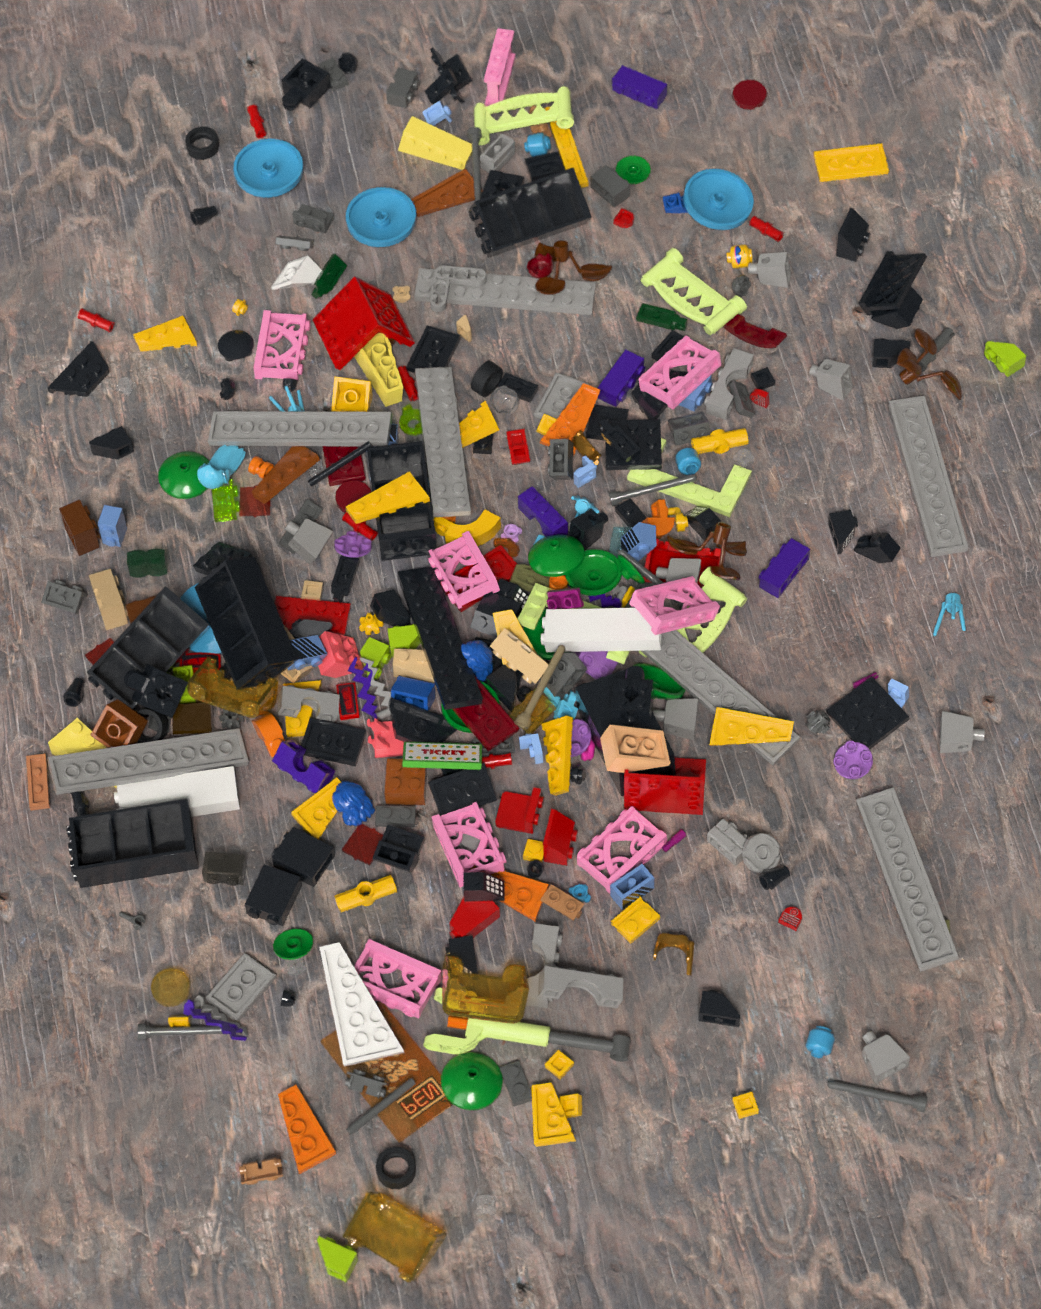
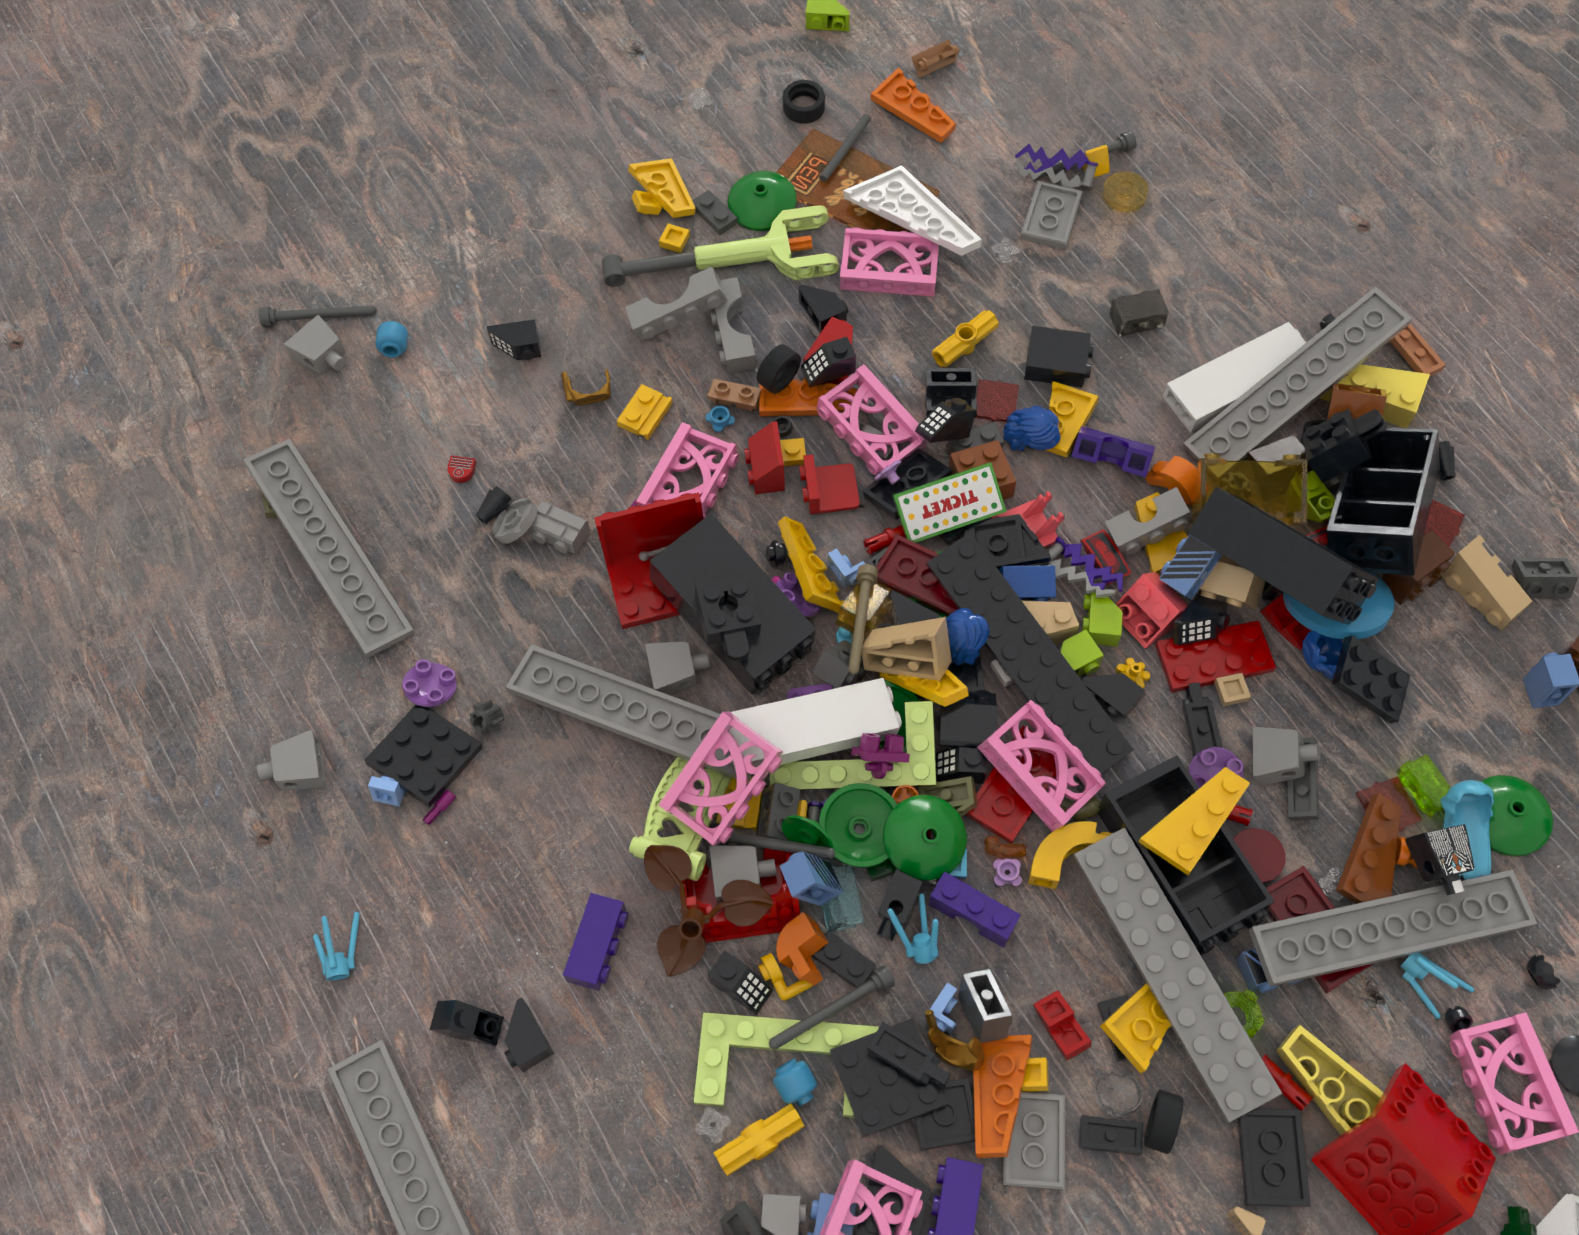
camera: 160 degrees right, 5 degrees up
(132, 843) = (1255, 297): black container -> none
(133, 919) = (1200, 242): dark grey hand -> none
(145, 563) = (1470, 652): clear green brick -> none
(248, 450) = (1443, 856): none -> black torso
(273, 895) = (1069, 303): black brick -> none
(288, 998) = (994, 215): black hinge -> none
(293, 944) = (1024, 256): green dish -> none
(333, 741) = (1095, 498): black plate -> none
(345, 460) = (1301, 888): black bar -> none
(351, 395) = (1351, 1021): yellow slope -> none
(359, 1080) = (869, 161): dark grey hinge -> none
(394, 1234) = (773, 52): clear yellow windscreen -> none
(417, 813) = (947, 422): none -> black slope
(474, 795) = (889, 472): none -> lavender plant
(482, 995) = (782, 263): clear yellow windscreen -> none
(523, 895) = (778, 368): none -> black tyre
(566, 706) = (825, 629): medium azure plate -> none
(632, 886) = (657, 432): medium blue brick -> none
(633, 748) = (699, 539): light nougat slope -> none
(664, 686) = (702, 676): green dish -> none
(689, 427) = (815, 1151): dark grey bracket -> none
(739, 727) = (572, 666): yellow wing -> none
(745, 1105) = (460, 258): yellow plate -> none

